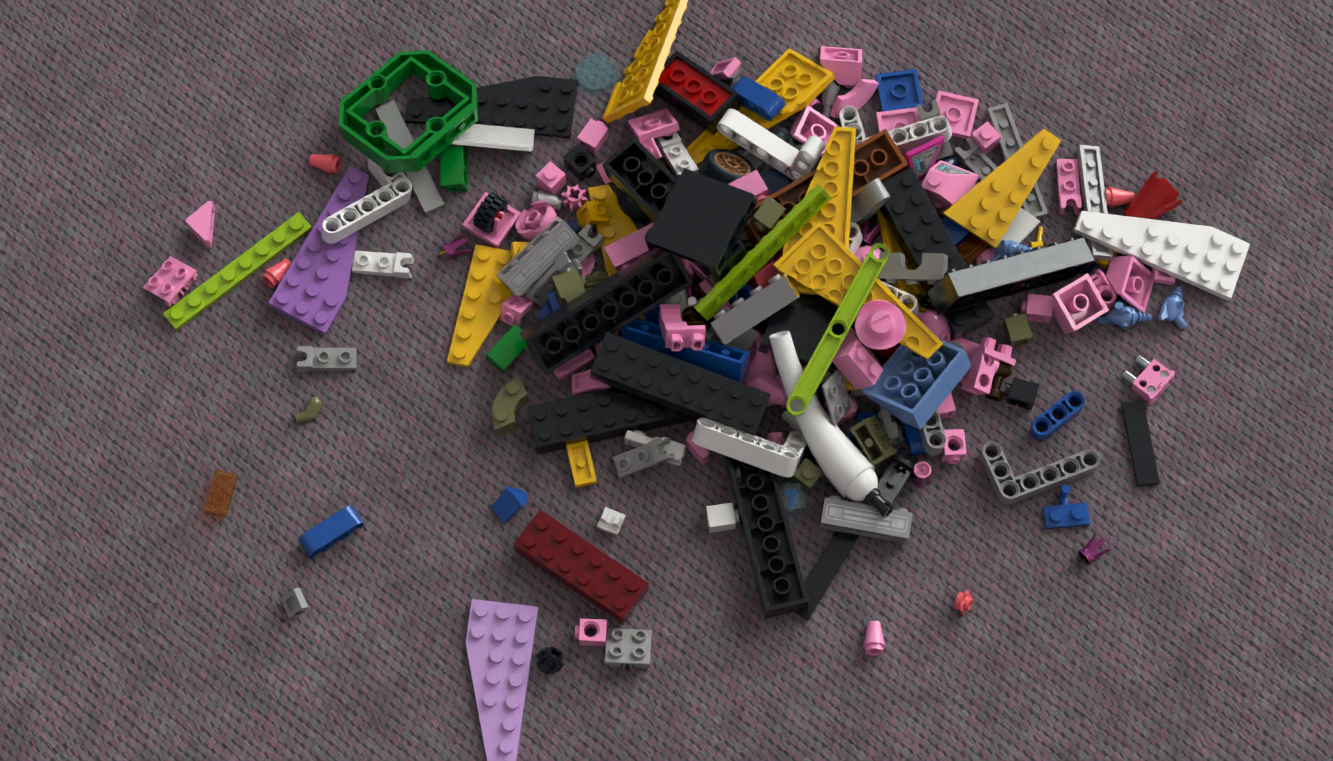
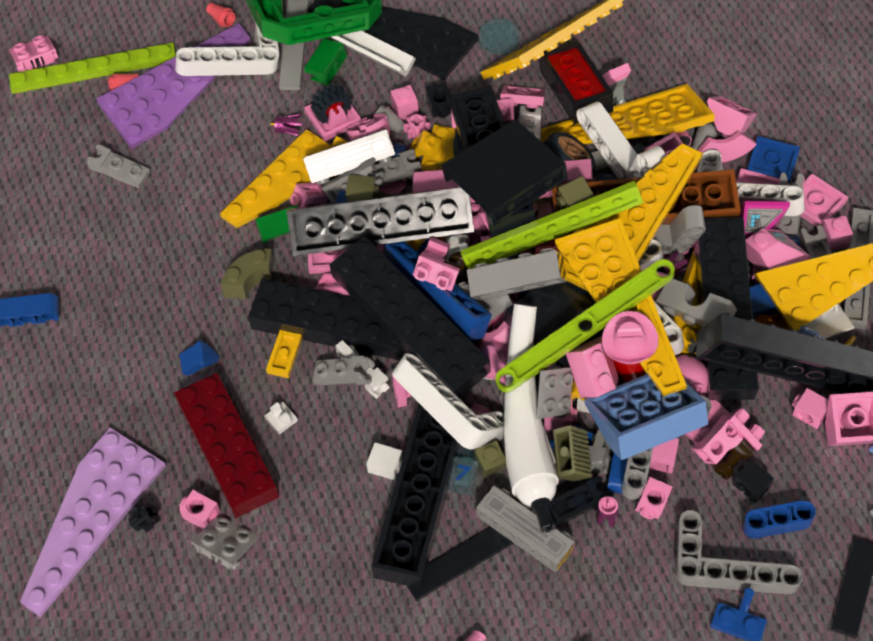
camera: 30 degrees right, 10 degrees down
(202, 223) = (89, 18): bright pink slope -> none
(311, 412) = (77, 204): olive arm -> none
(382, 264) = (217, 112): white plate -> none
(593, 136) = (463, 81): bright pink brick -> none
(758, 98) = (631, 108): blue beam -> none
(1017, 330) = (778, 419): olive brick -> none

